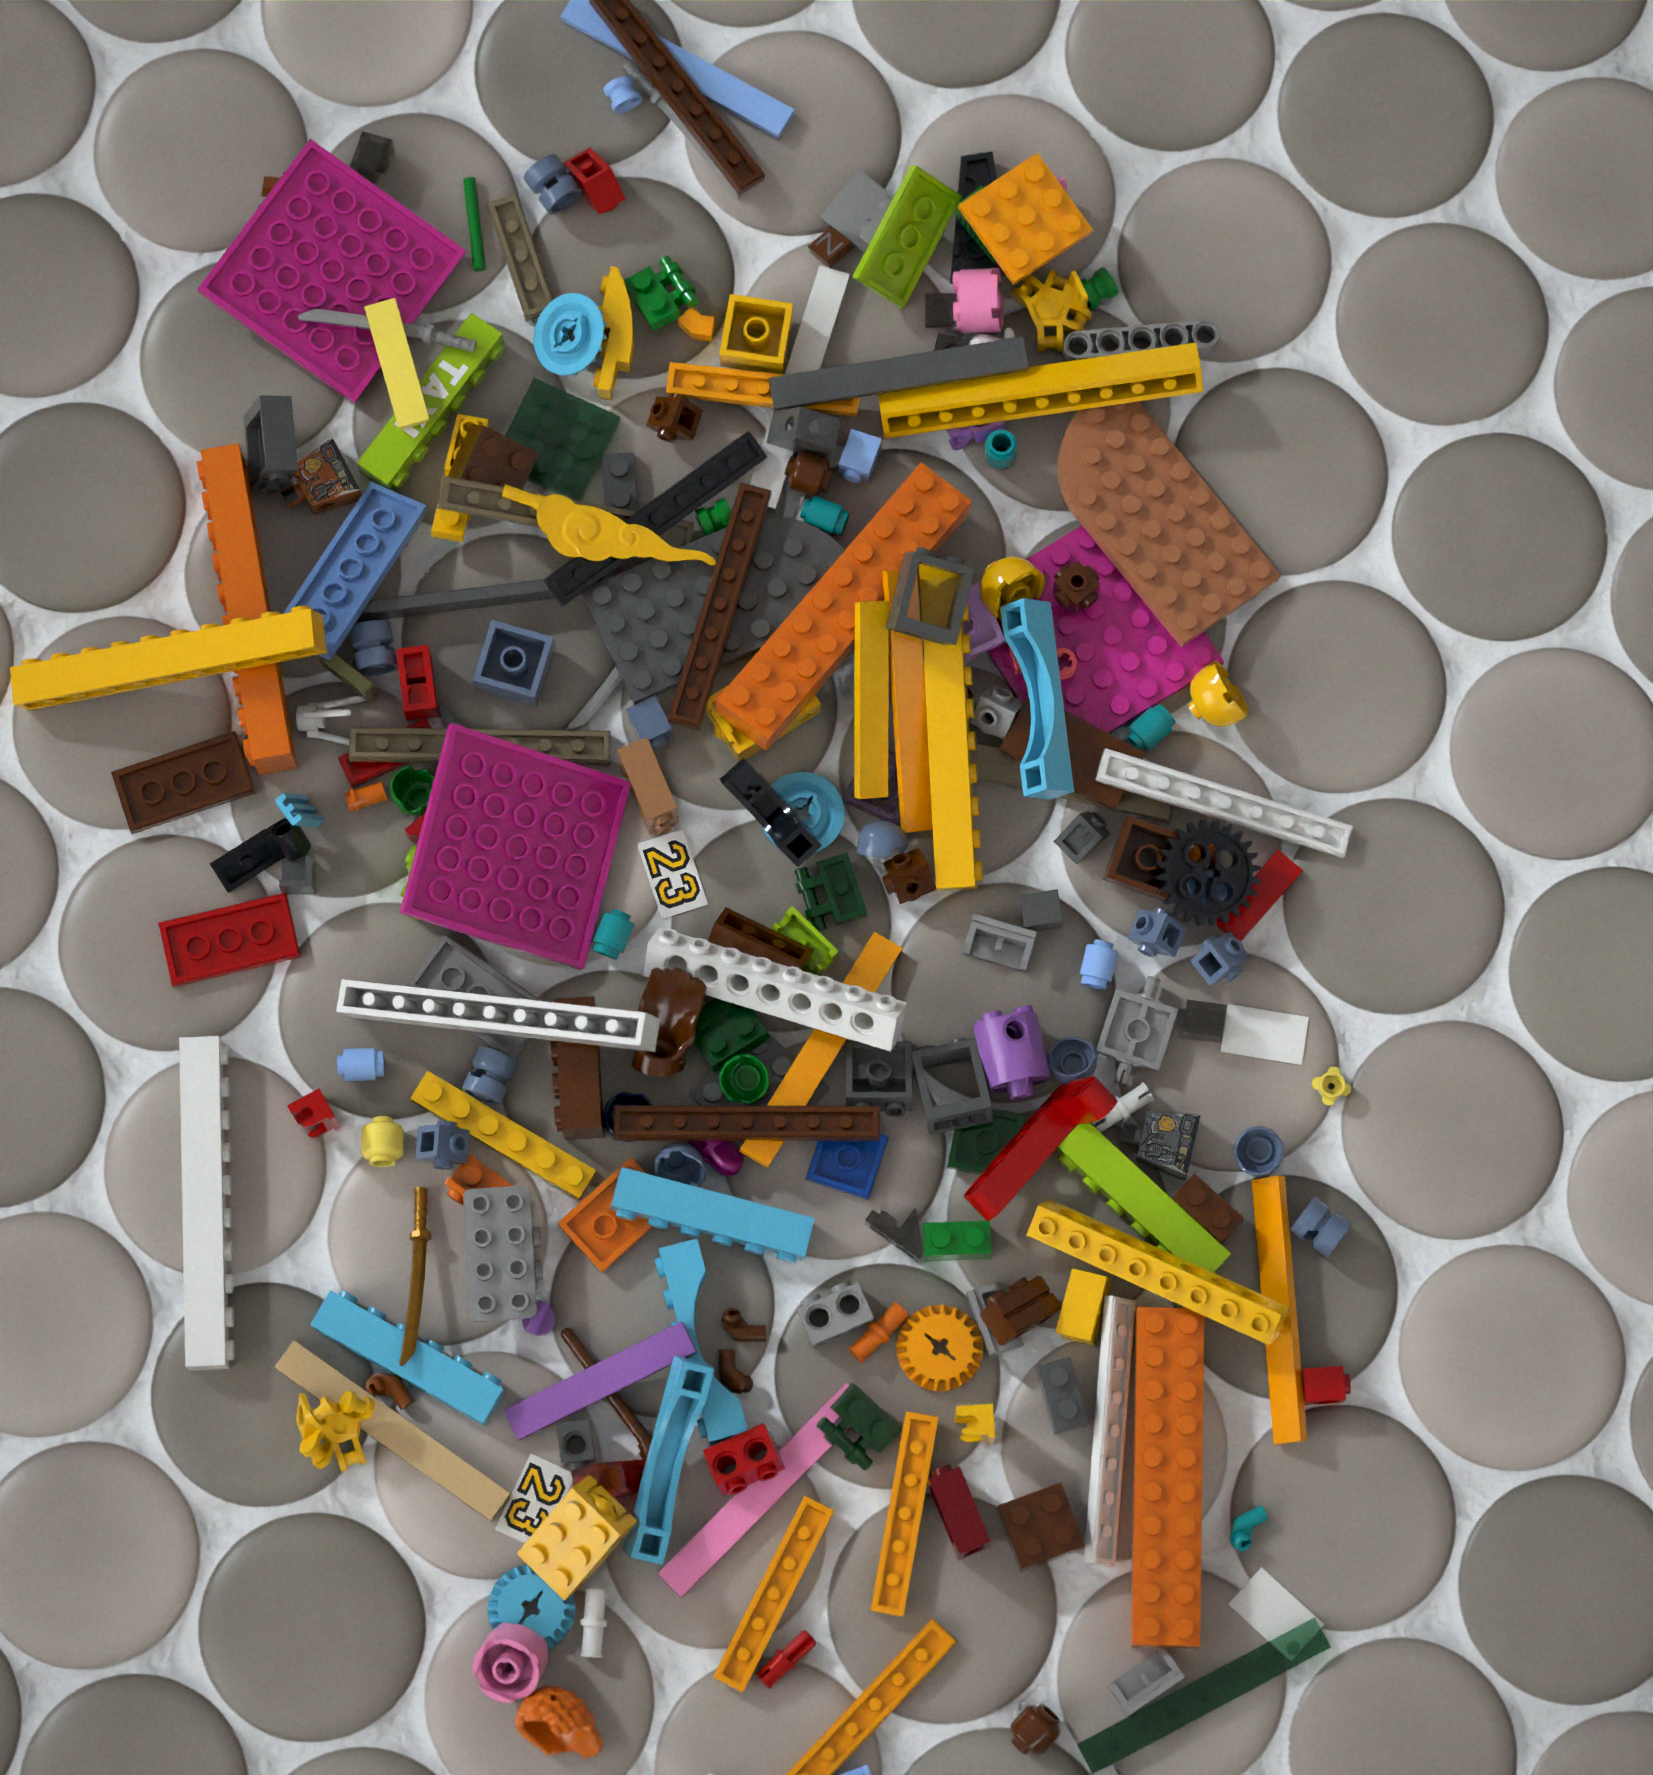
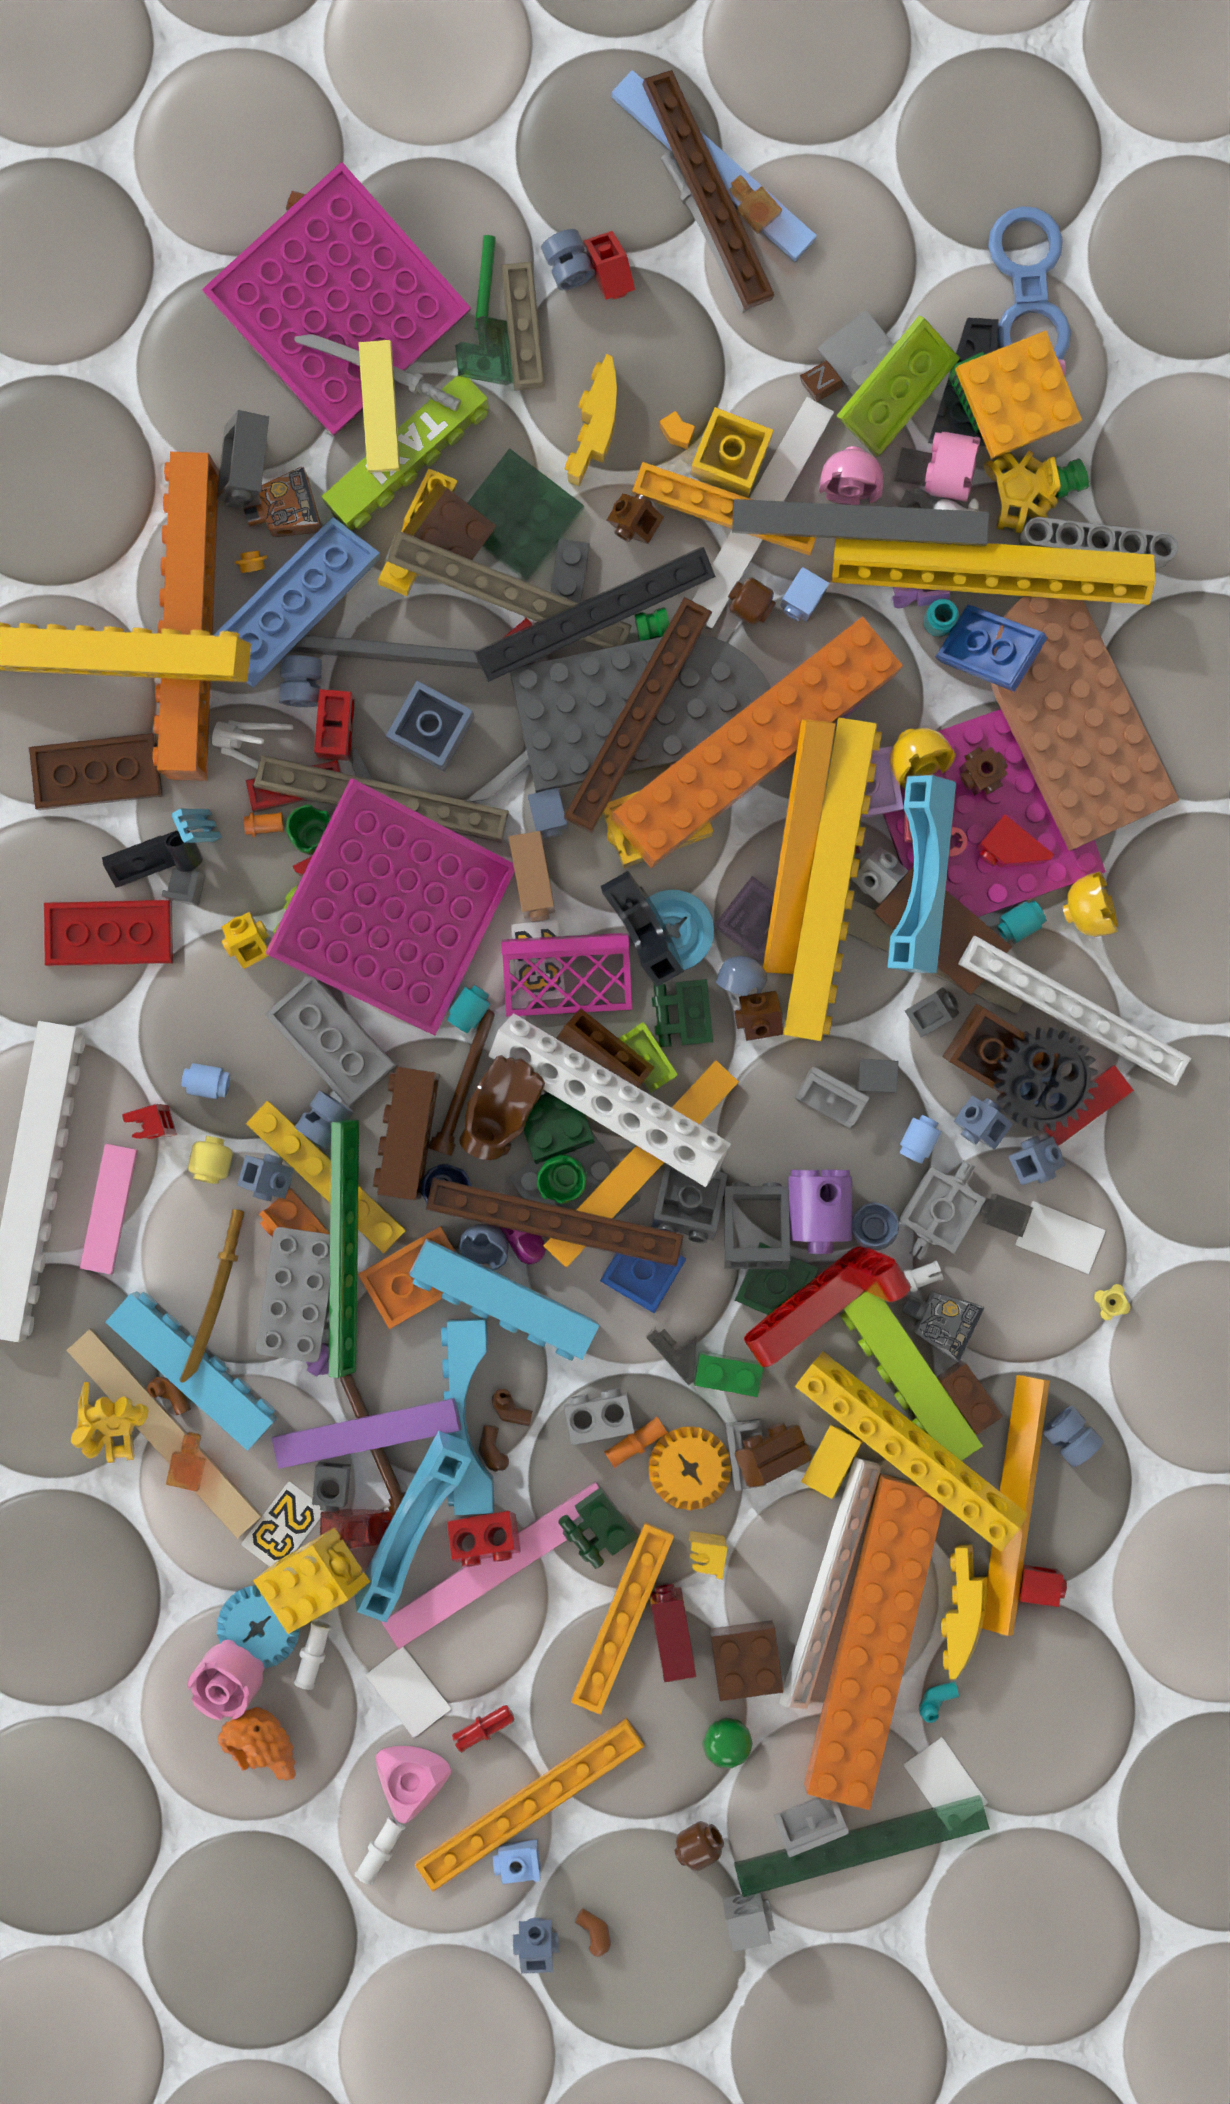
camera: 10 degrees right, 10 degrees up
(287, 1215) = (109, 1209): none -> bright pink tile
(298, 542) = (251, 561): none -> light orange plate
(350, 677) = (274, 707): olive tile -> none
(371, 156) = (400, 193): clear smoke brick -> none
(372, 913) = (245, 939): none -> yellow brick
(423, 1458) = (187, 1467): none -> clear orange plate
(496, 294) = (491, 358): none -> clear green tile
(498, 1015) = (341, 1073): white brick -> none
(538, 1197) = (343, 1247): none -> green tile
(552, 339) = (534, 412): medium azure gear -> none
(595, 532) = (533, 617): yellow piece -> none
(615, 1073) = (444, 1140): none -> reddish brown piece
(622, 94) = (654, 184): light blue wheel -> none
(652, 298) = (639, 394): green plate -> none
(694, 1639) = (408, 1692): none -> white sticker
(698, 851) = (562, 947): none -> dark pink fence
(722, 1729) = (410, 1778): none -> bright pink hat
(728, 95) = (757, 206): none -> clear orange plate
(773, 1594) = (484, 1666): light orange plate -> none
(809, 431) = (762, 559): dark grey torso -> none
(825, 515) = (758, 645): teal brick -> none
(871, 699) = (763, 839): yellow tile -> none
(881, 332) = (851, 477): none -> bright pink cylinder
(897, 618) = (818, 744): dark grey window -> none
(1015, 108) = (1030, 281): none -> medium blue bar
(1039, 463) = (973, 644): none -> blue tile
(1041, 1620) = (727, 1743): none -> green hair
(1062, 1395) = (793, 1541): dark grey brick -> none
(1122, 654) = (1011, 846): none -> red slope
(1257, 1441) = (963, 1624): none -> yellow slope
(1259, 1151) = (1030, 1352): sand blue hair -> none

